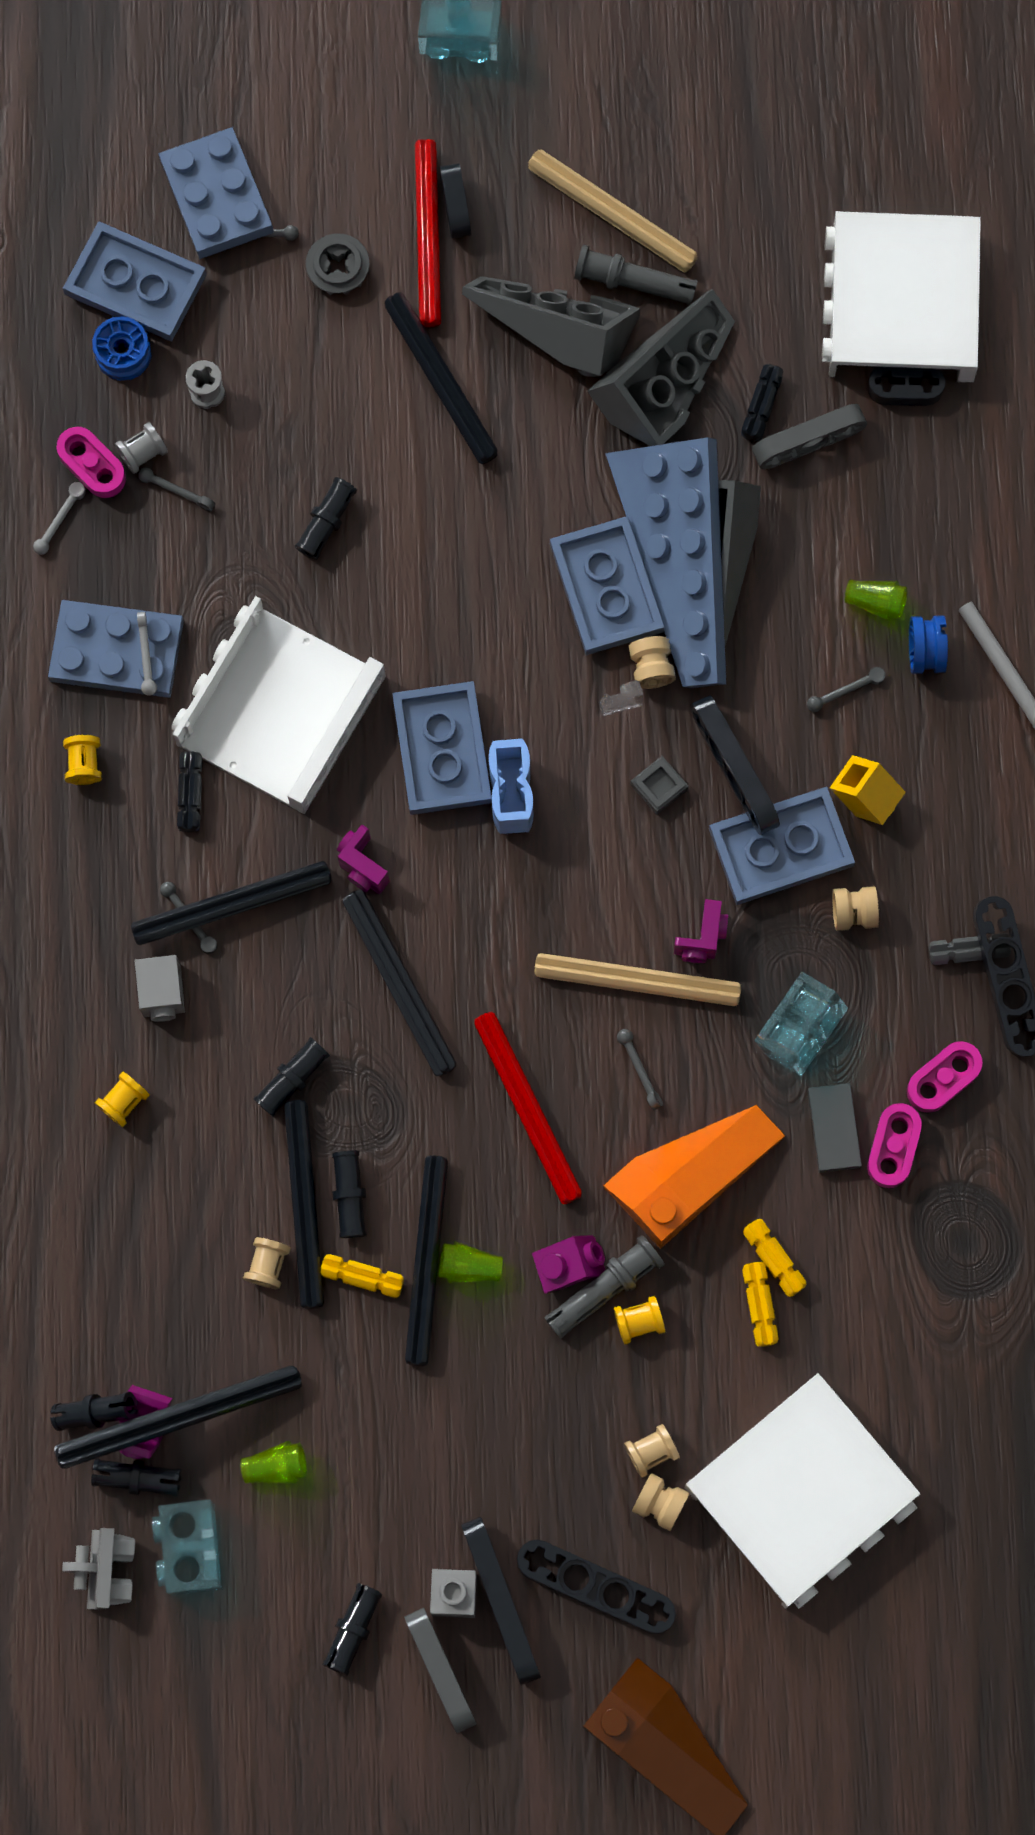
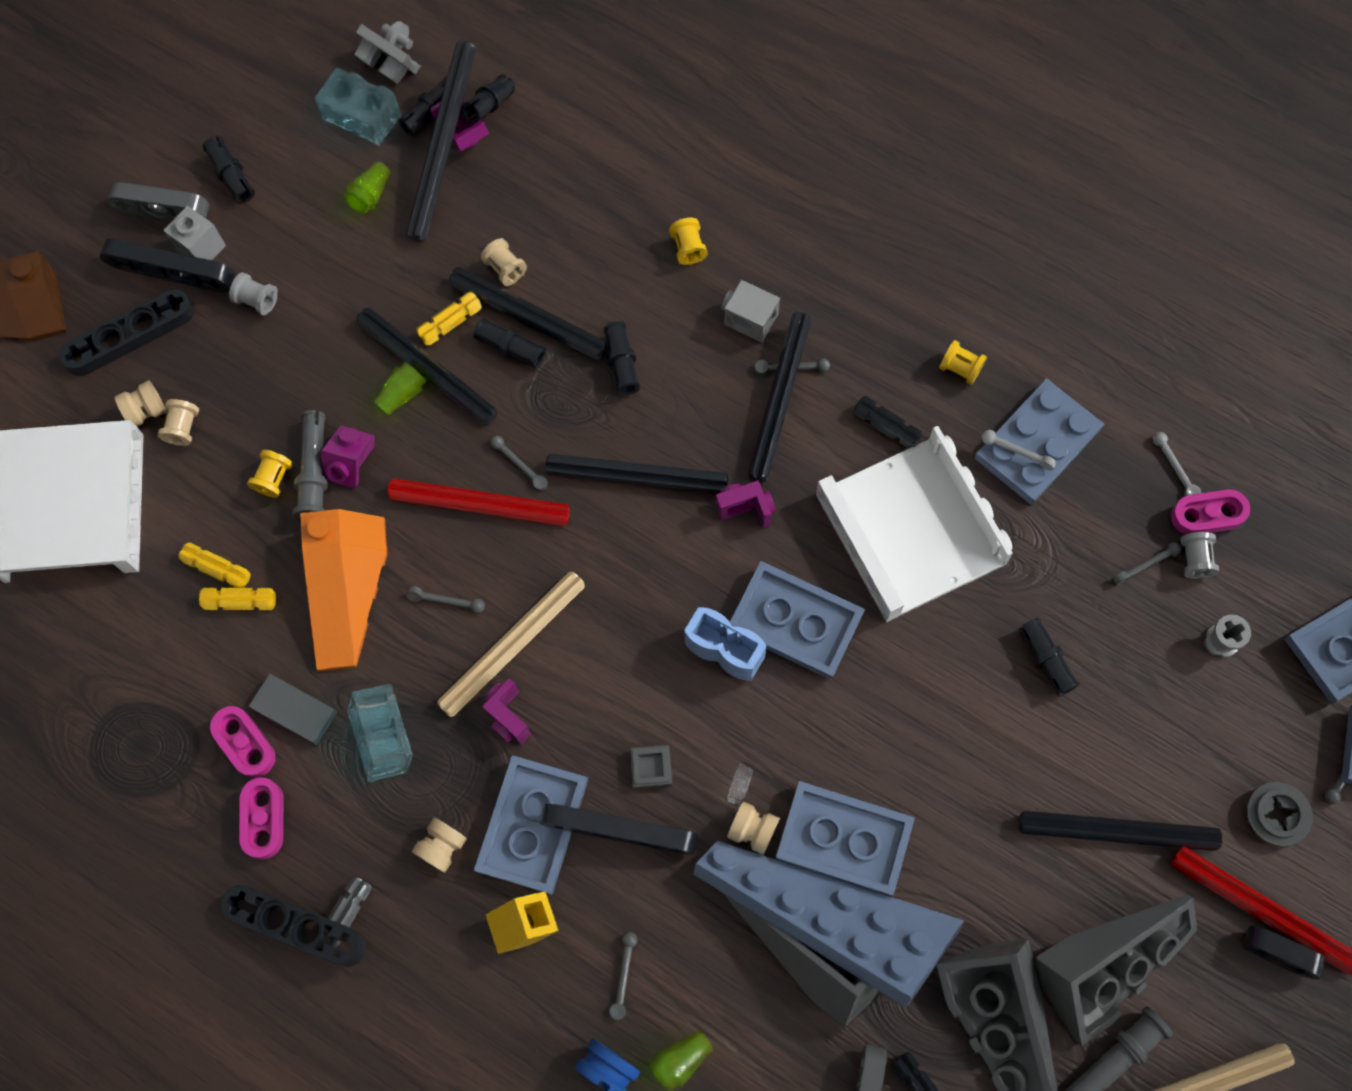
camera: 125 degrees right, 5 degrees down
(105, 346) = (1312, 586): blue wheel -> none
(468, 1068) = (539, 482): none -> dark grey hinge
(470, 1486) = (253, 293): none -> light grey bush

